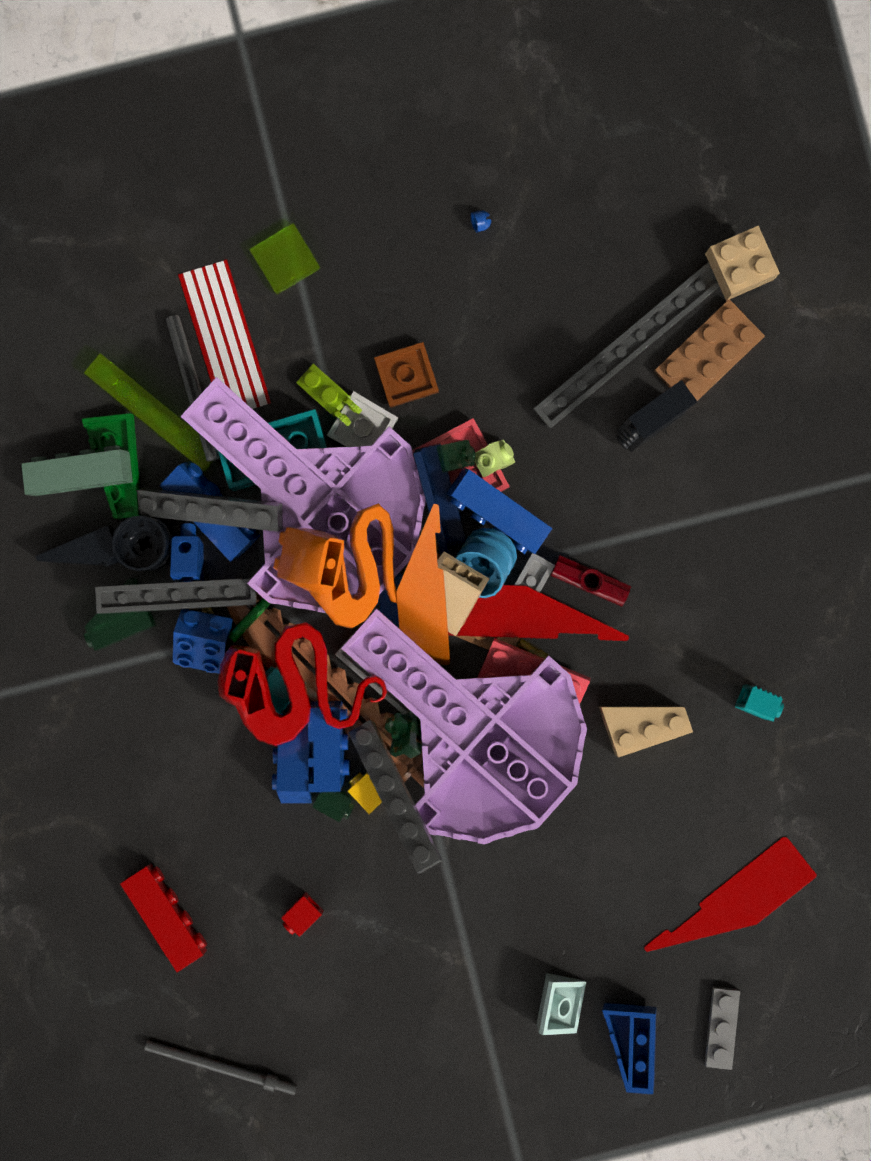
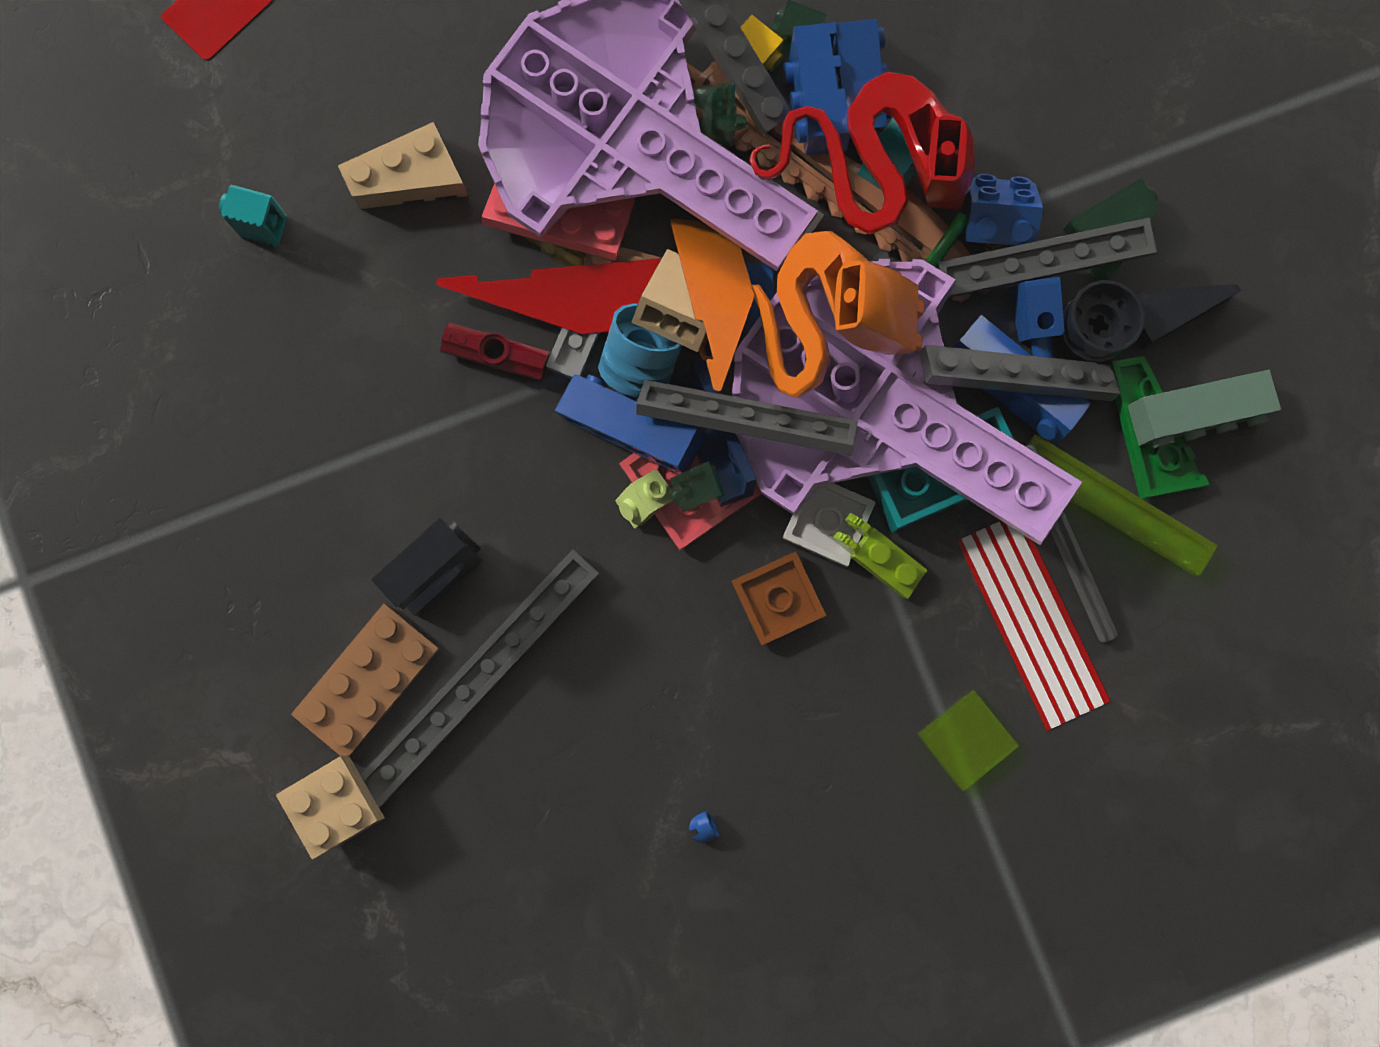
camera: 165 degrees right, 5 degrees down
(413, 497) = (747, 417): none -> dark grey plate

